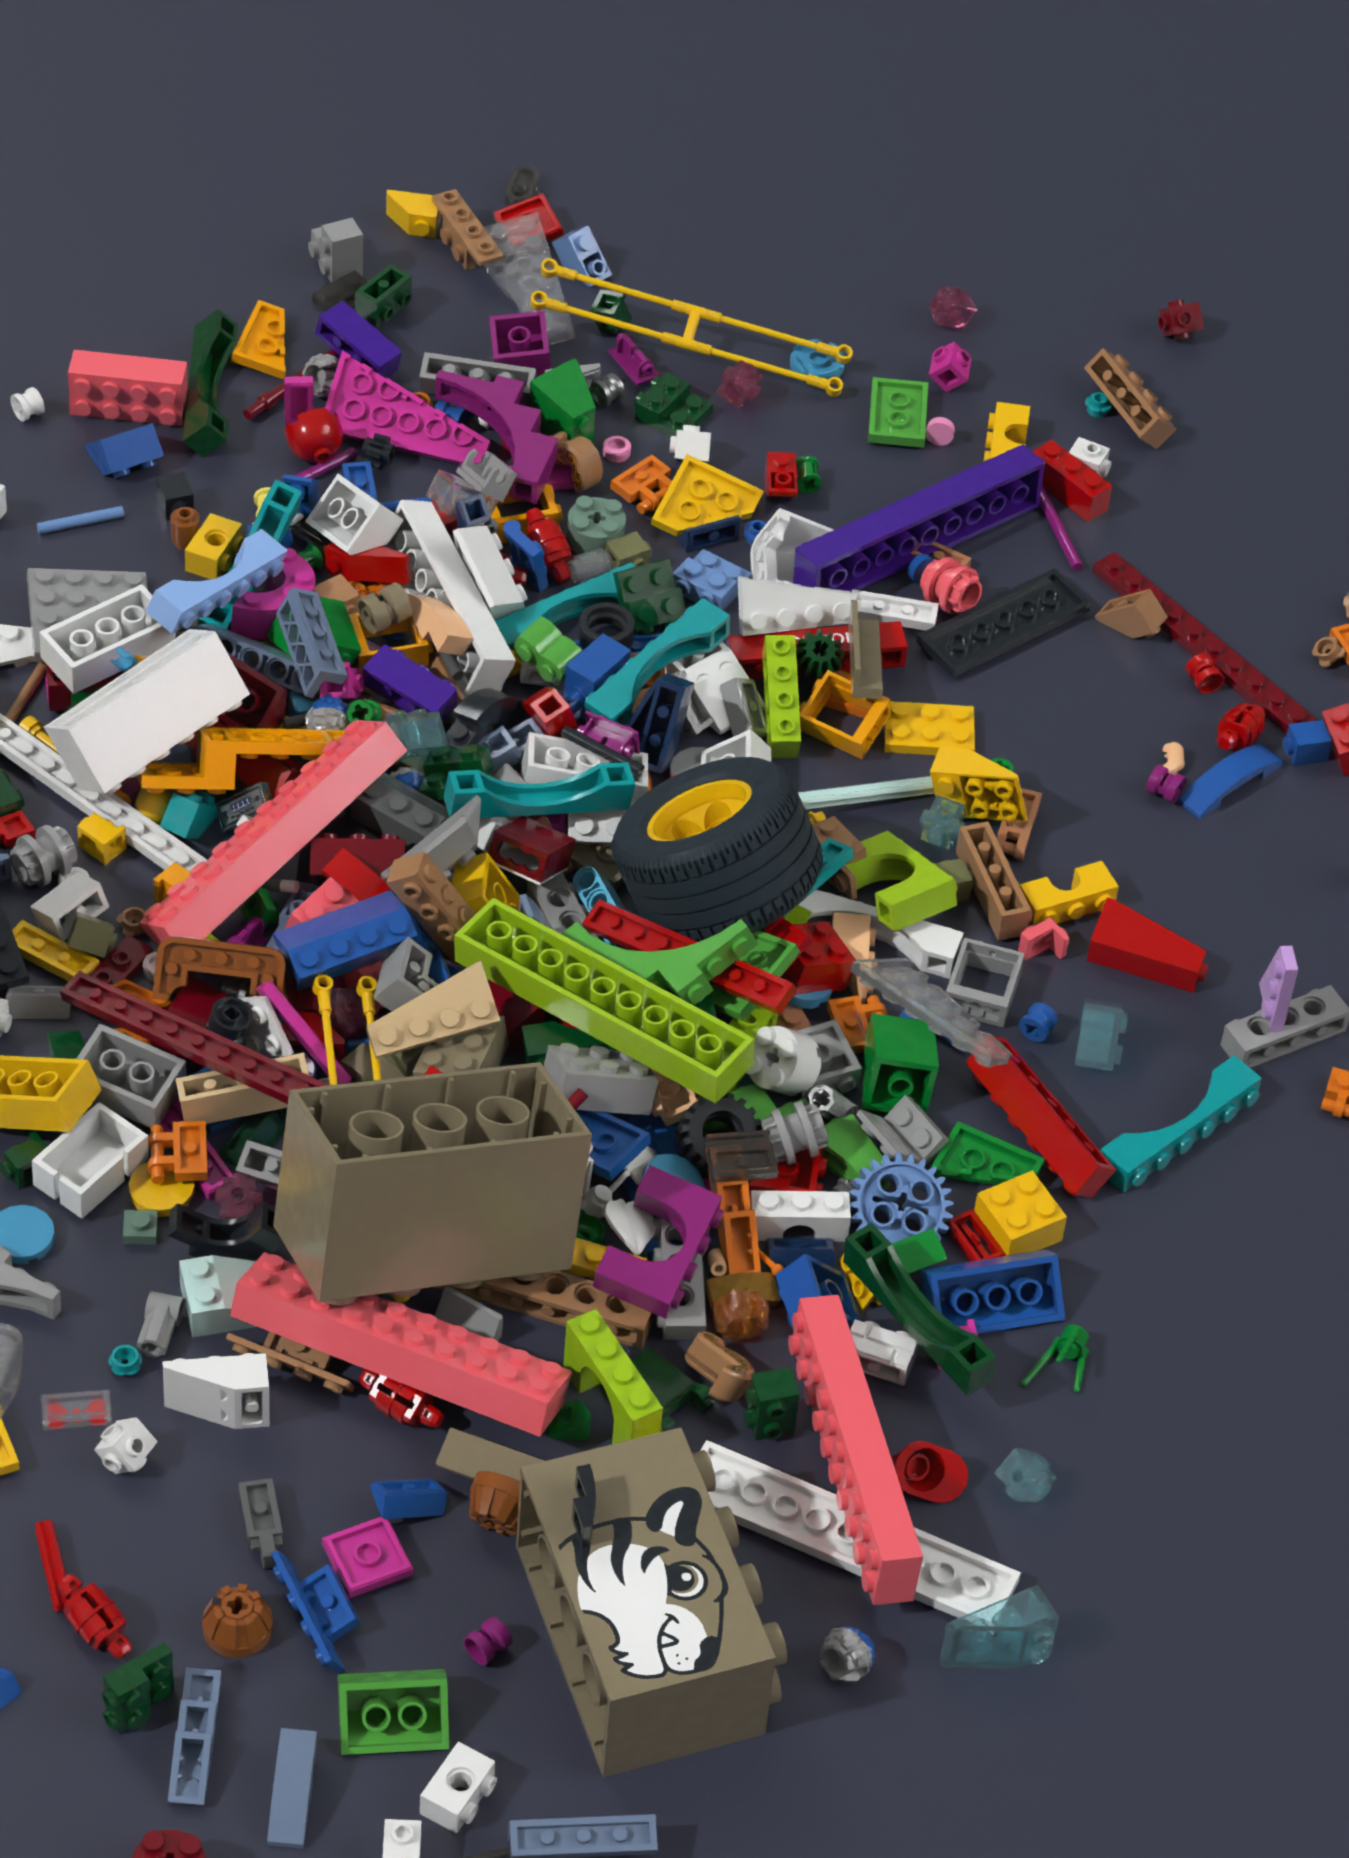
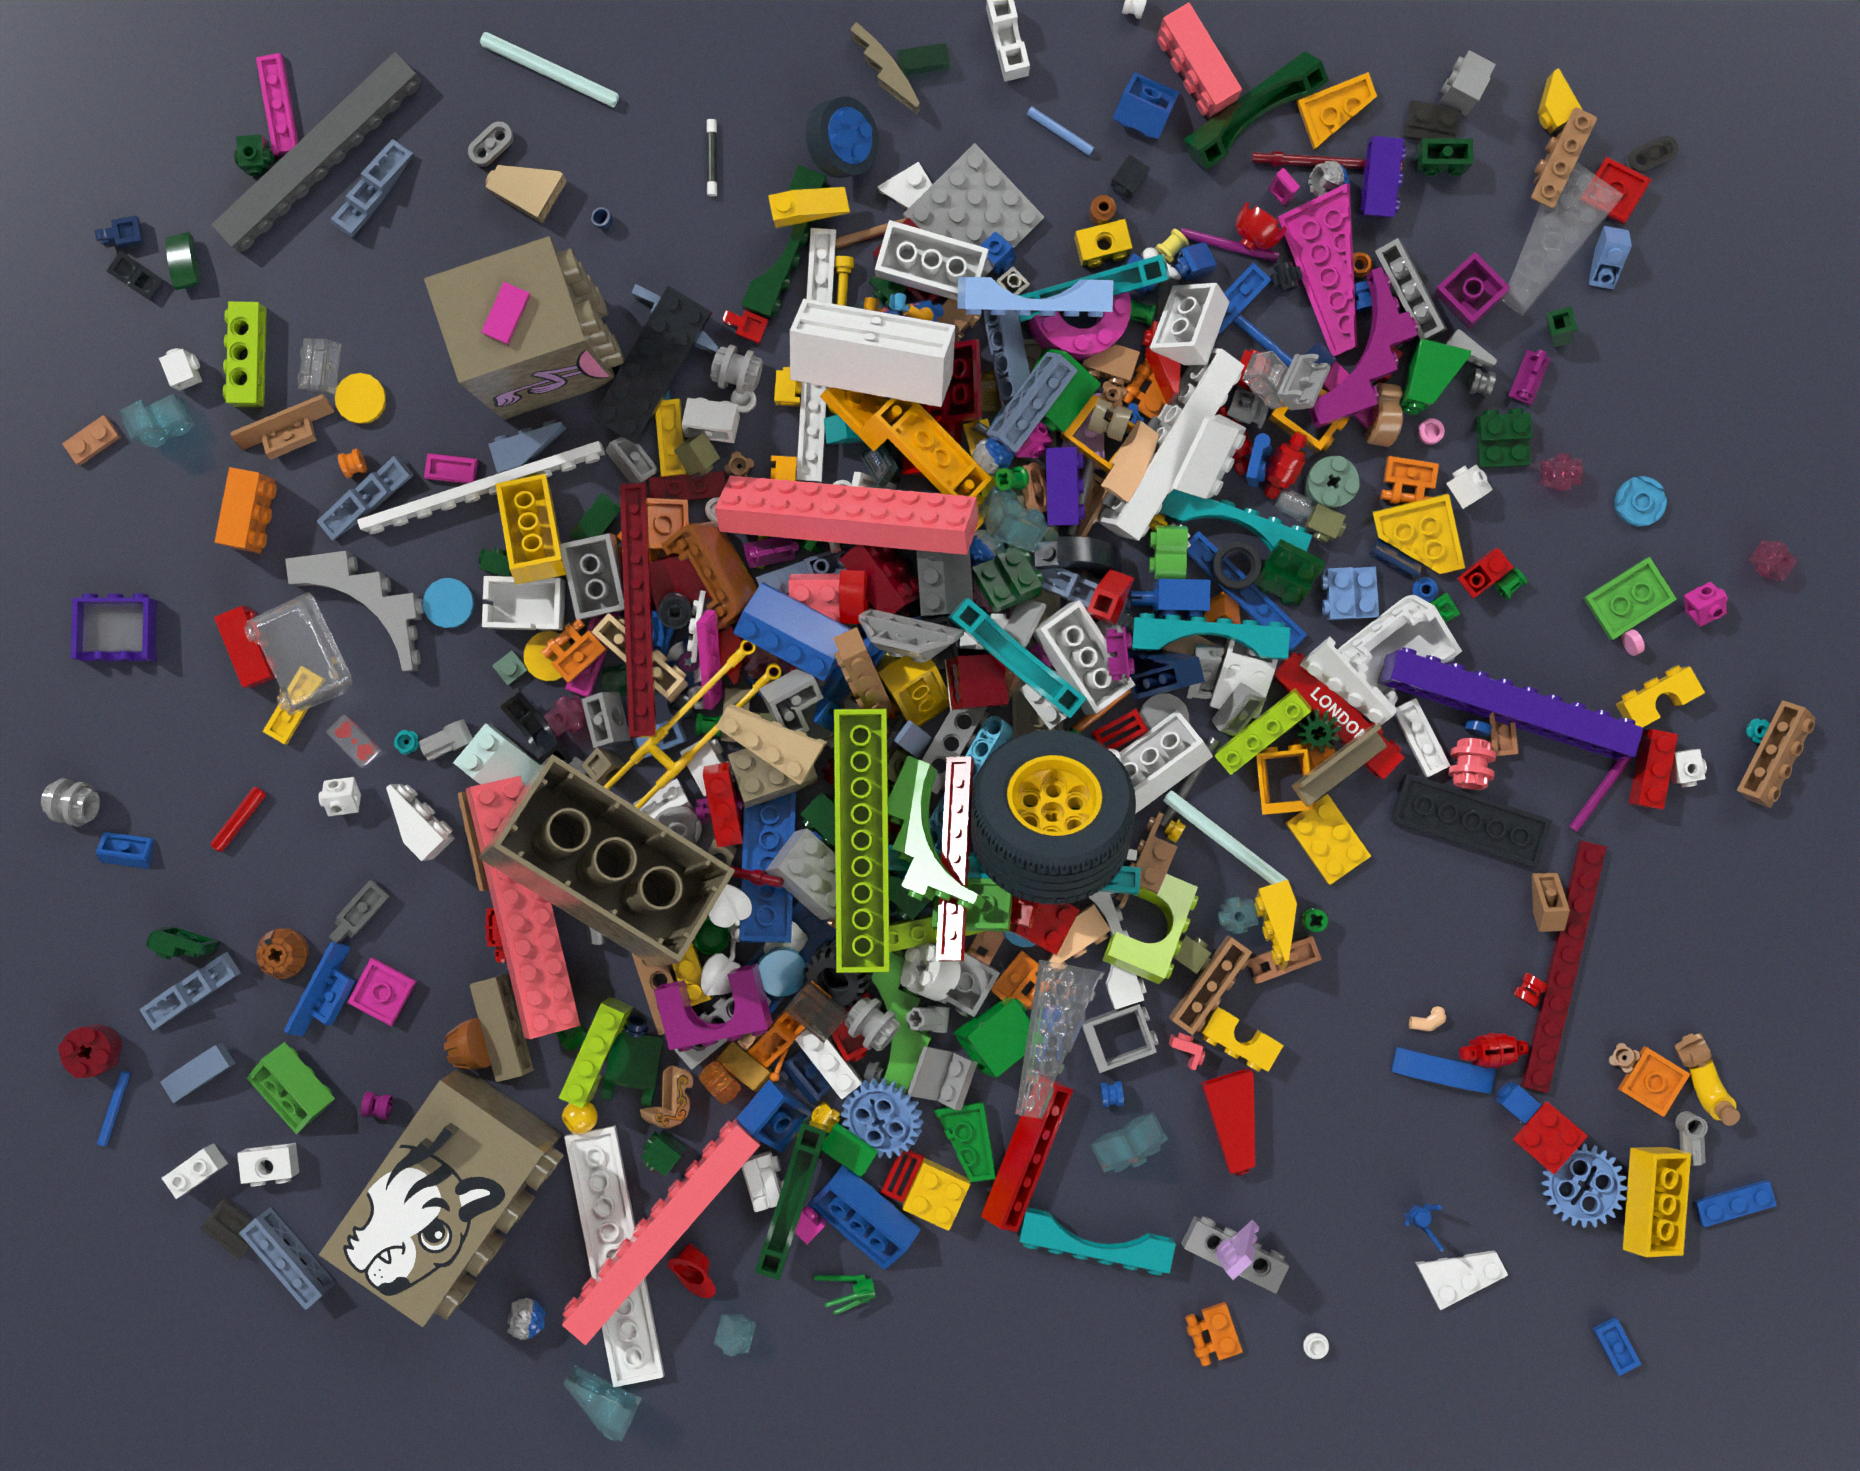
camera: 60 degrees right, 40 degrees up
(94, 1616) = (215, 875): red piece -> none
(409, 1498) = (439, 983): blue slope -> none
(472, 511) = (1258, 401): dark blue slope -> none
(600, 749) = (1102, 656): black bar -> none
(687, 341) = (1570, 405): yellow bar -> none
(1166, 784) = (1399, 1033): magenta wheel -> none

